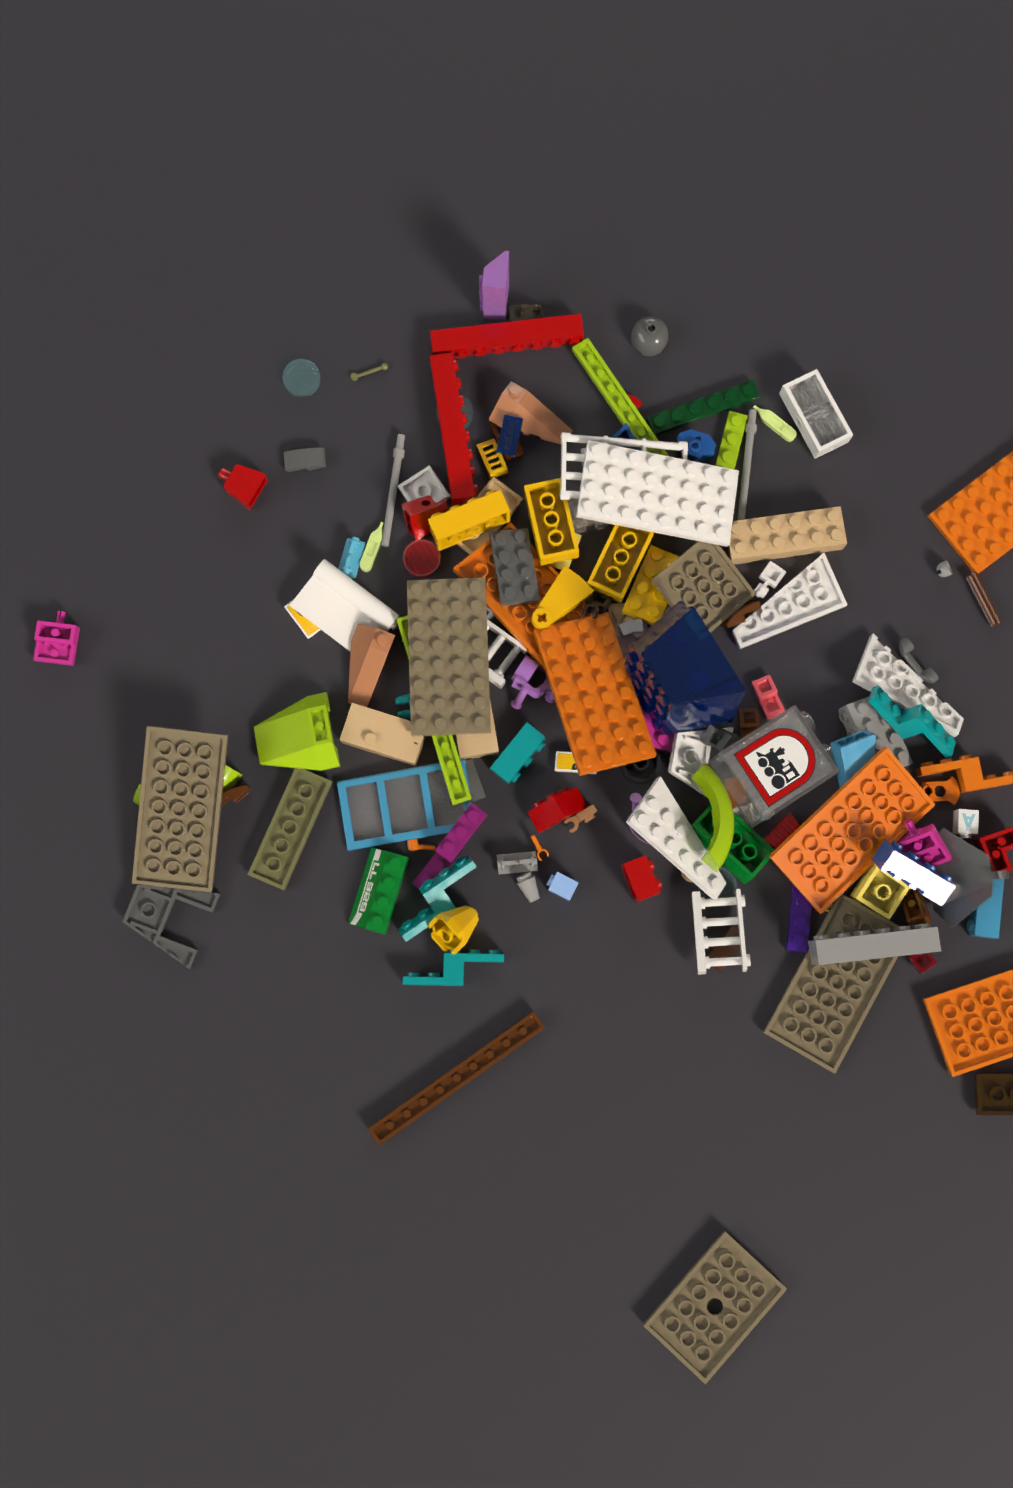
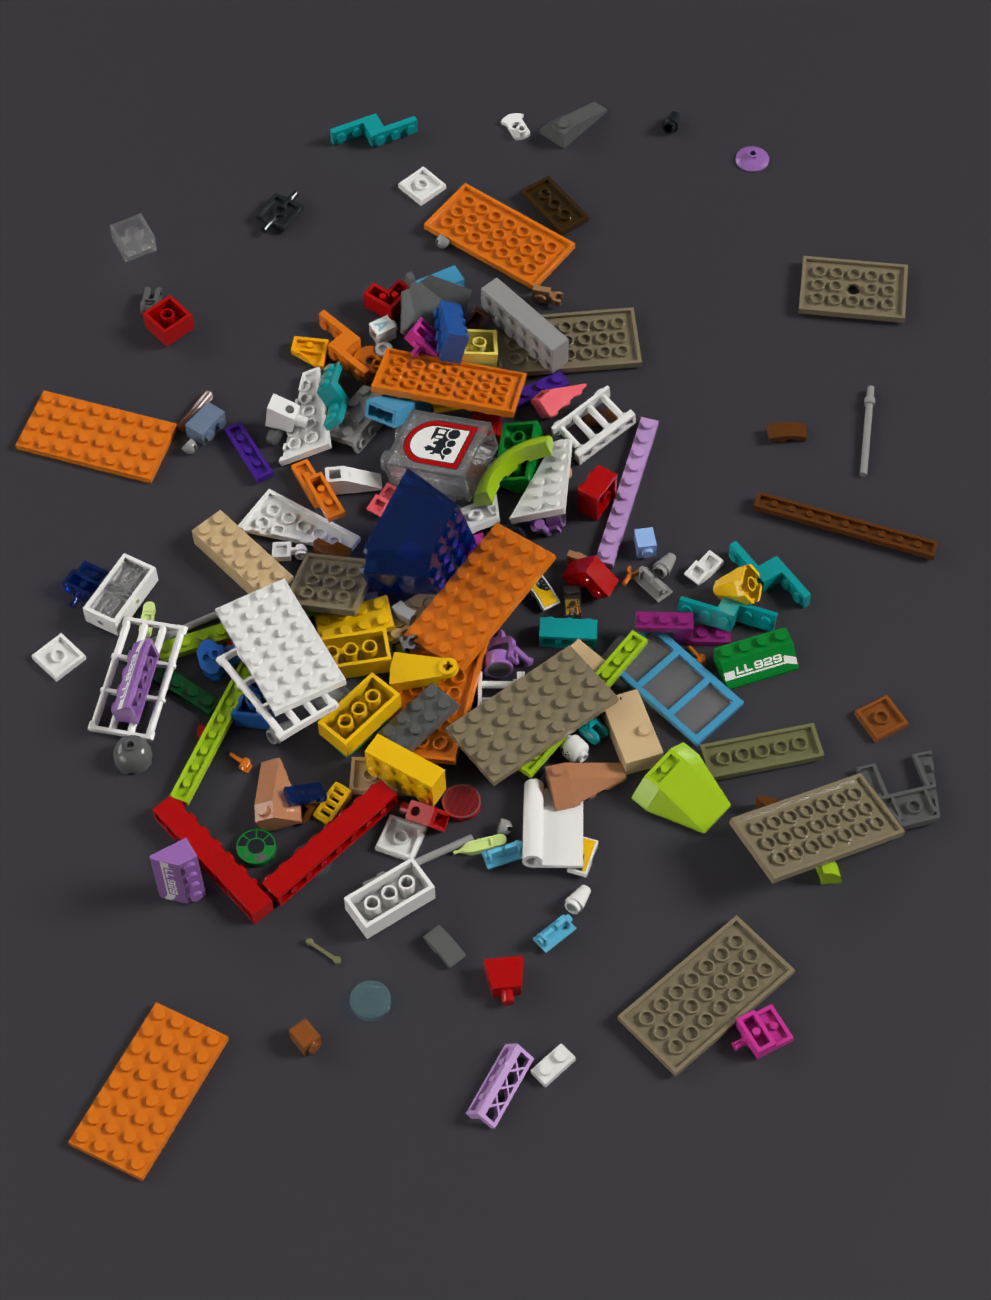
camera: 125 degrees left, 25 degrees down
(118, 624) = (705, 995): none -> dark tan plate
(150, 473) = (553, 1065): none -> white plate
(164, 419) = (494, 1082): none -> lavender fence
(250, 953) = (881, 718): none -> dark orange tile
(255, 548) = (555, 933): none -> medium azure hinge
(268, 585) = (577, 900): none -> white cone
(302, 310) = (305, 1037): none -> dark orange brick
(346, 181) = (148, 1091): none -> orange plate
(371, 442) = (389, 897): none -> white brick
(373, 575) = (503, 826): none -> light grey hinge
(400, 679) = (574, 749): none -> white head
(494, 377) = (256, 847): none -> tile
(502, 919) = (705, 568): none -> white slope
(543, 777) = (572, 601): none -> clear smoke leg
(573, 1211) = (869, 403): none -> light grey bar
(578, 416) = (245, 764): none -> orange hand
(594, 1107) = (783, 431): none -> reddish brown slope
(632, 915) = (627, 491): none -> lavender plate
(708, 365) = (135, 682): none -> medium lavender slope
(724, 397) = (116, 656): none -> white door
(775, 921) = (550, 401): none -> coral slope
(790, 336) = (58, 657): none -> white tile
(806, 679) = (352, 480): none -> white slope
(812, 640) = (318, 490): none -> orange bracket
(851, 396) = (83, 582): none -> clear blue plate
(902, 615) = (249, 452): none -> dark purple plate
(909, 999) = (544, 295): none -> medium nougat plate
(921, 656) = (284, 414): none -> white torso
(942, 1337) = (752, 159): none -> medium lavender dish
(943, 810) = (381, 347): none -> white tile
(959, 597) = (205, 423): none -> sand blue brick
(985, 743) = (310, 350): none -> light orange wing

